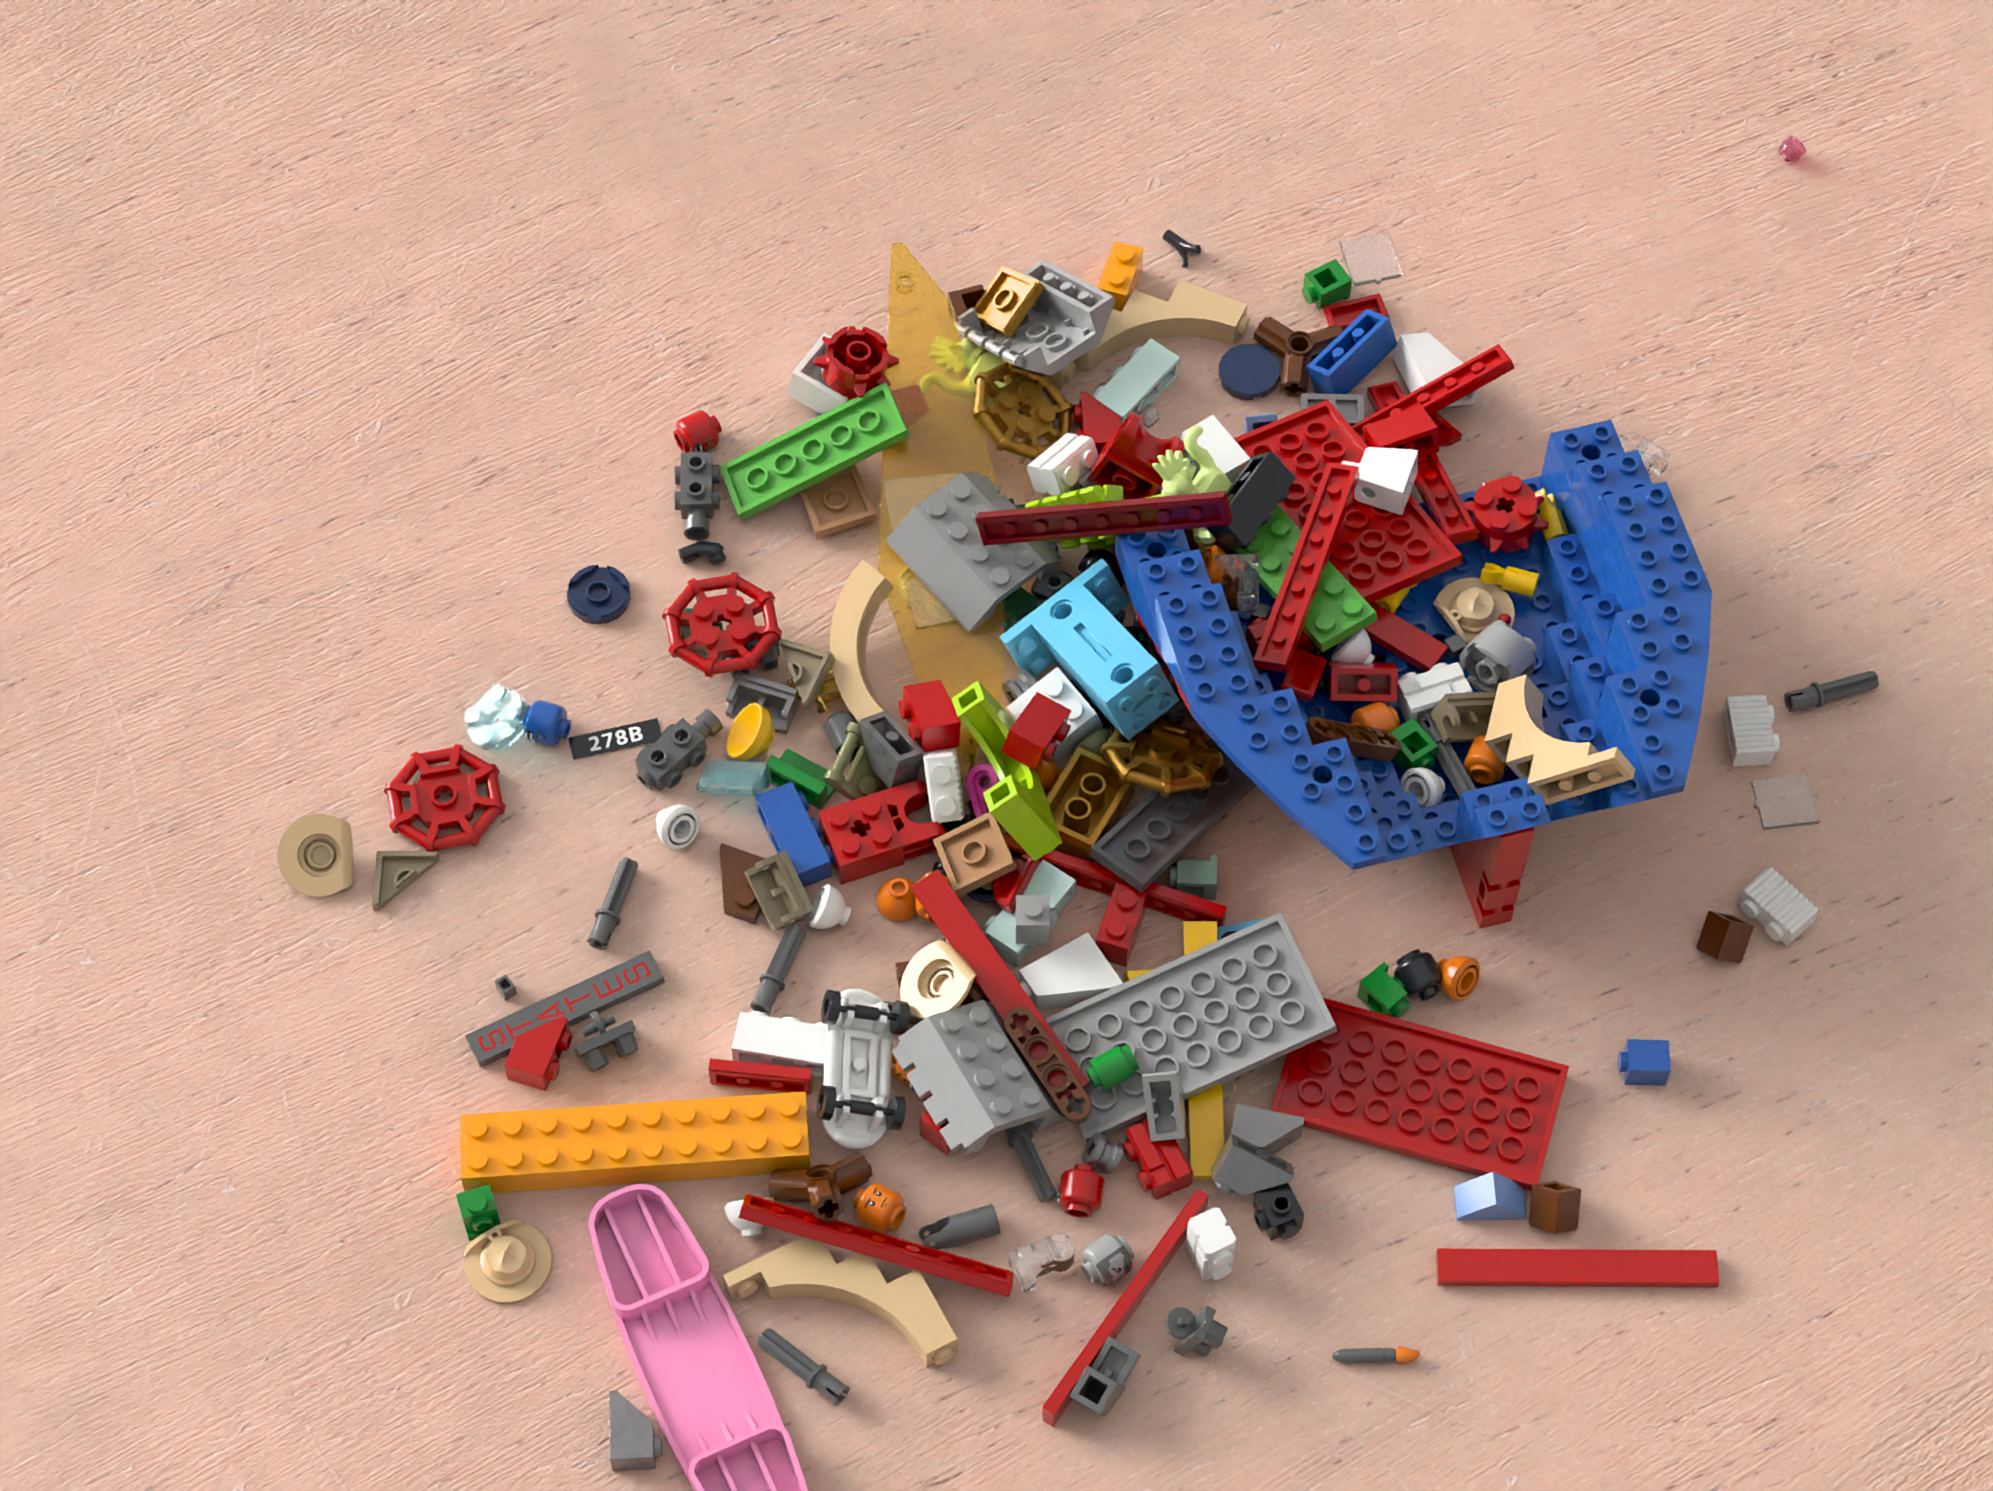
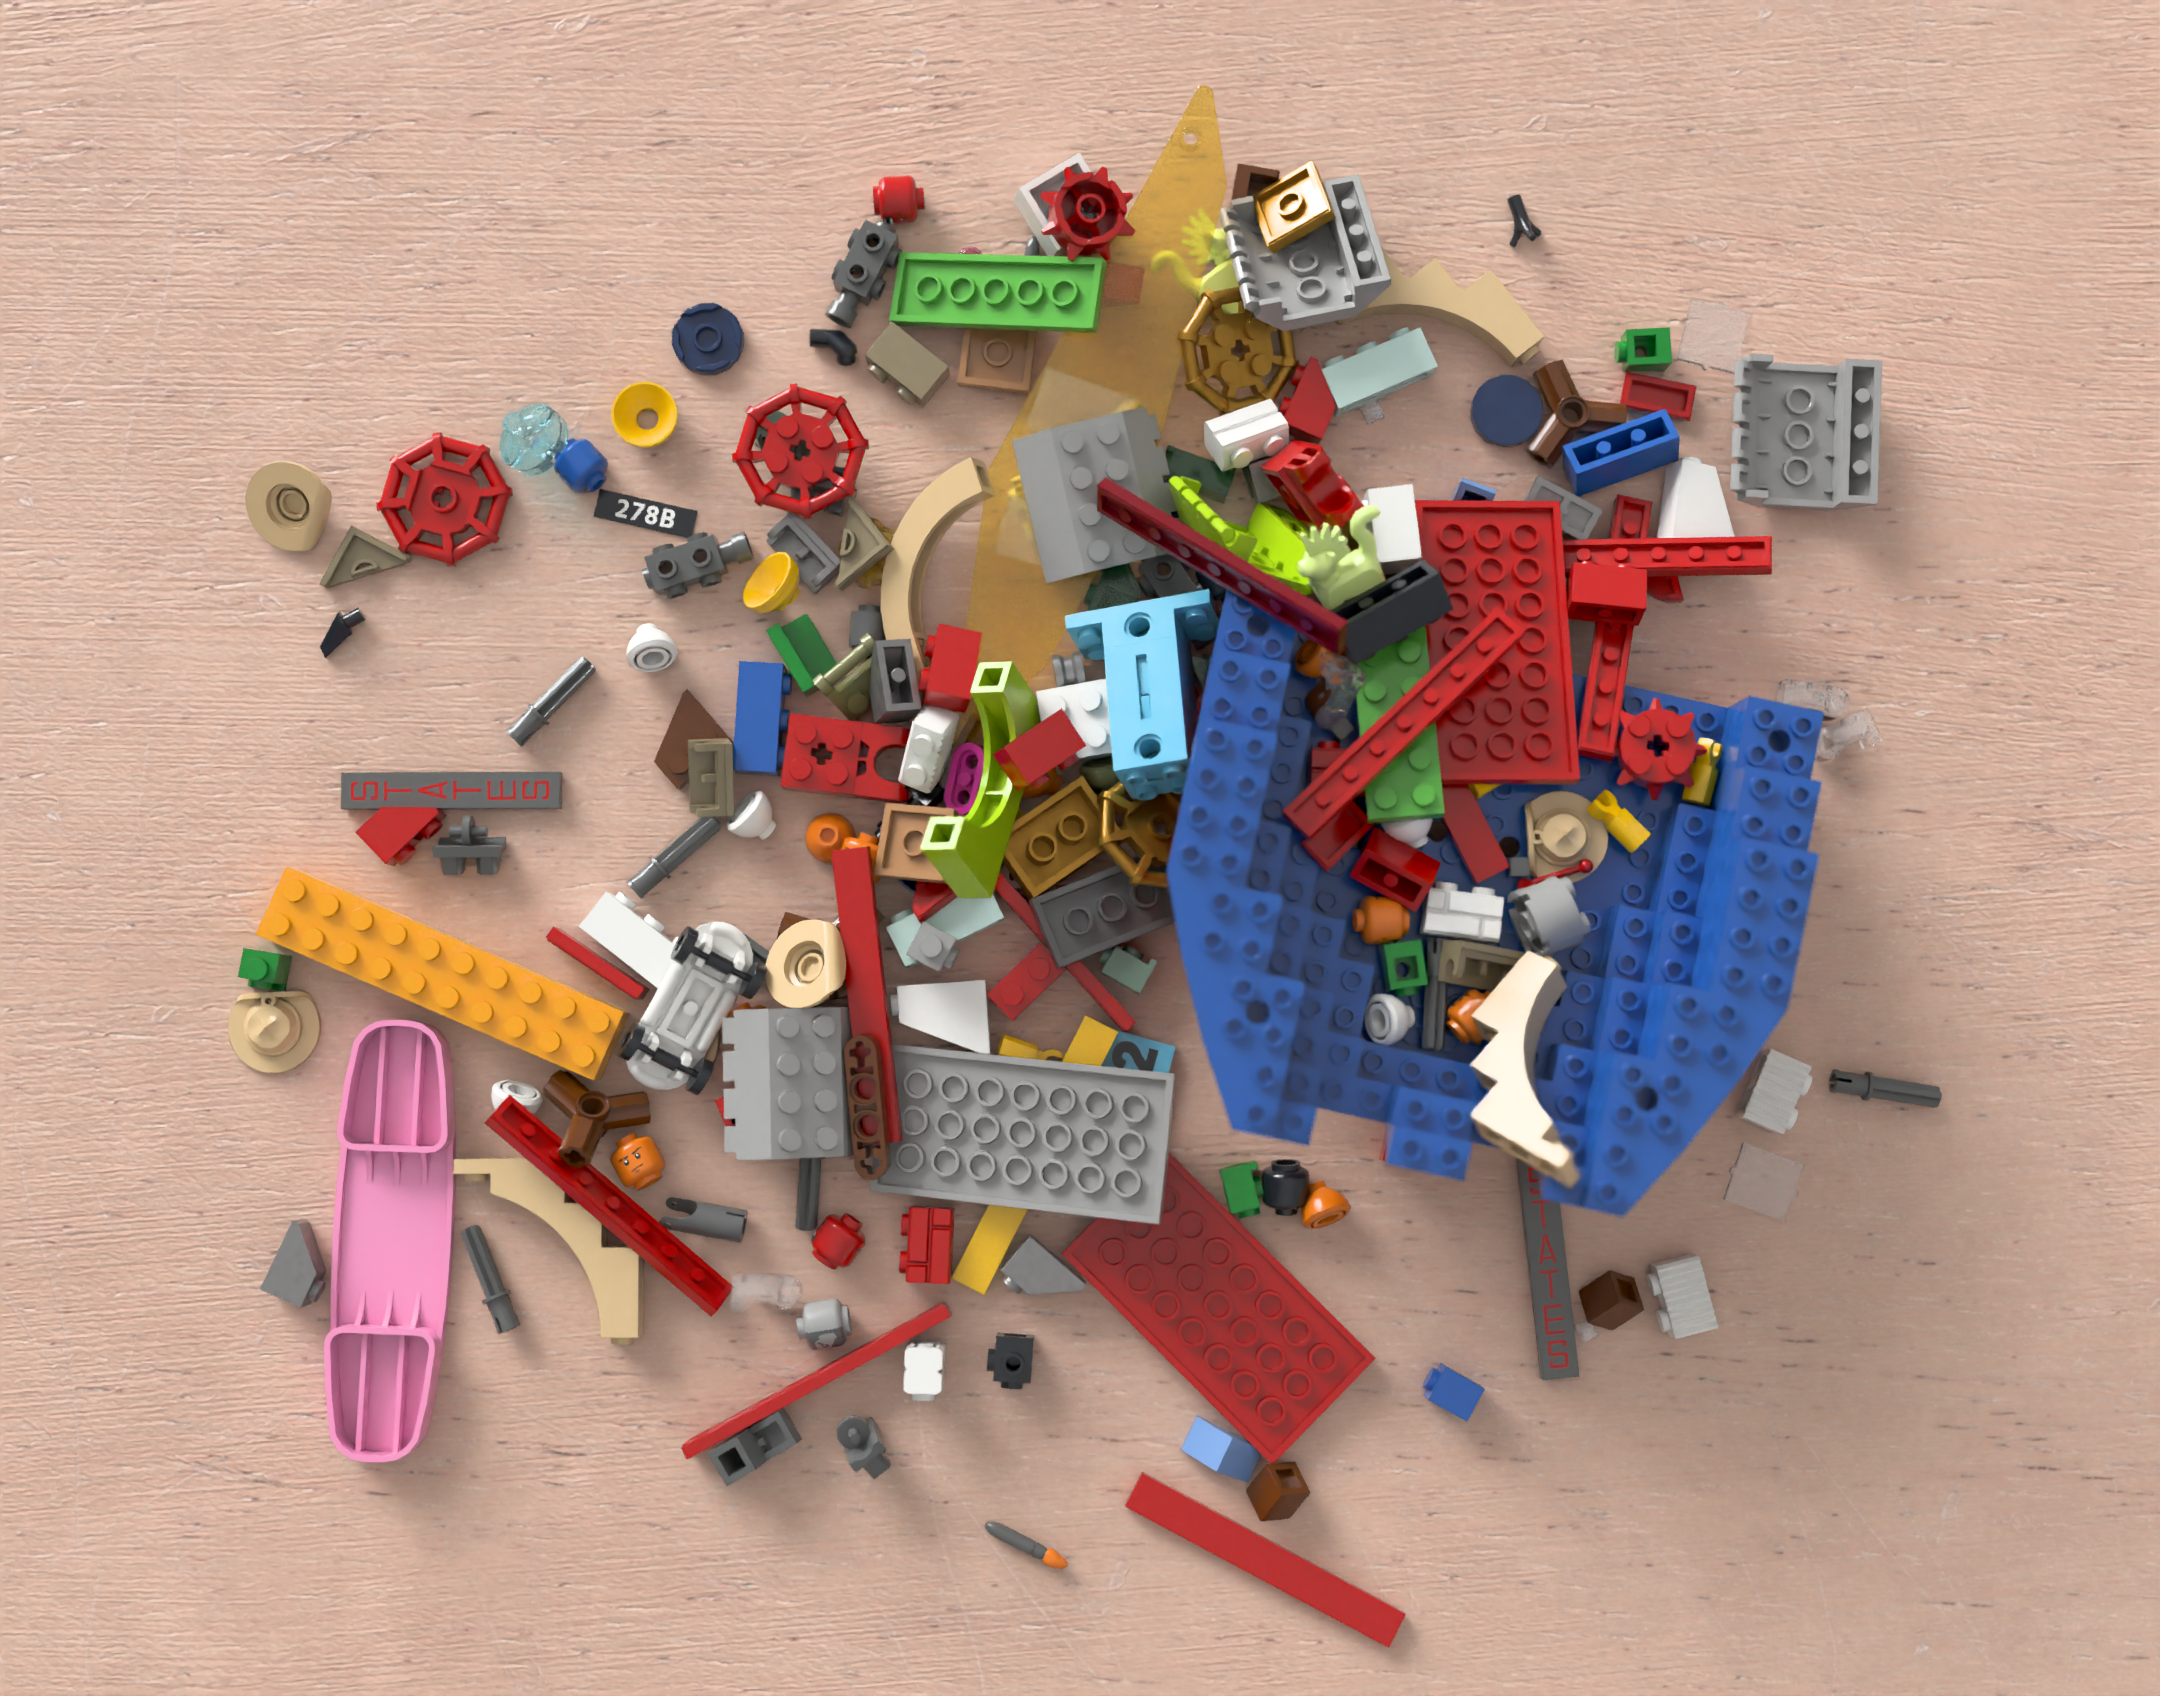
camera: 25 degrees right, 25 degrees up
(407, 932) = (340, 630): none -> black bar
(505, 987) = (405, 739): dark grey piece -> none
(579, 651) = (635, 400): none -> yellow piece
(734, 777) = (730, 628): clear light blue slope -> none
(769, 539) = (906, 365): none -> dark tan brick
(1102, 1153) = (877, 1215): flat silver wheel -> none
(1112, 1067) = (927, 1141): green brick -> none
(1121, 273) = (1431, 232): light orange brick -> none
(1164, 1105) = (951, 1215): light grey slope -> none
(1248, 1168) = (1005, 1310): flat silver slope -> none
(1362, 740) = (1332, 950): reddish brown beam -> none
(1386, 477) = (1553, 642): white torso -> none
(1482, 284) = (1806, 433): none -> light grey slope
(1661, 940) = (1547, 1278): none -> dark grey tile
(1720, 971) = (1585, 1331): none -> clear piece

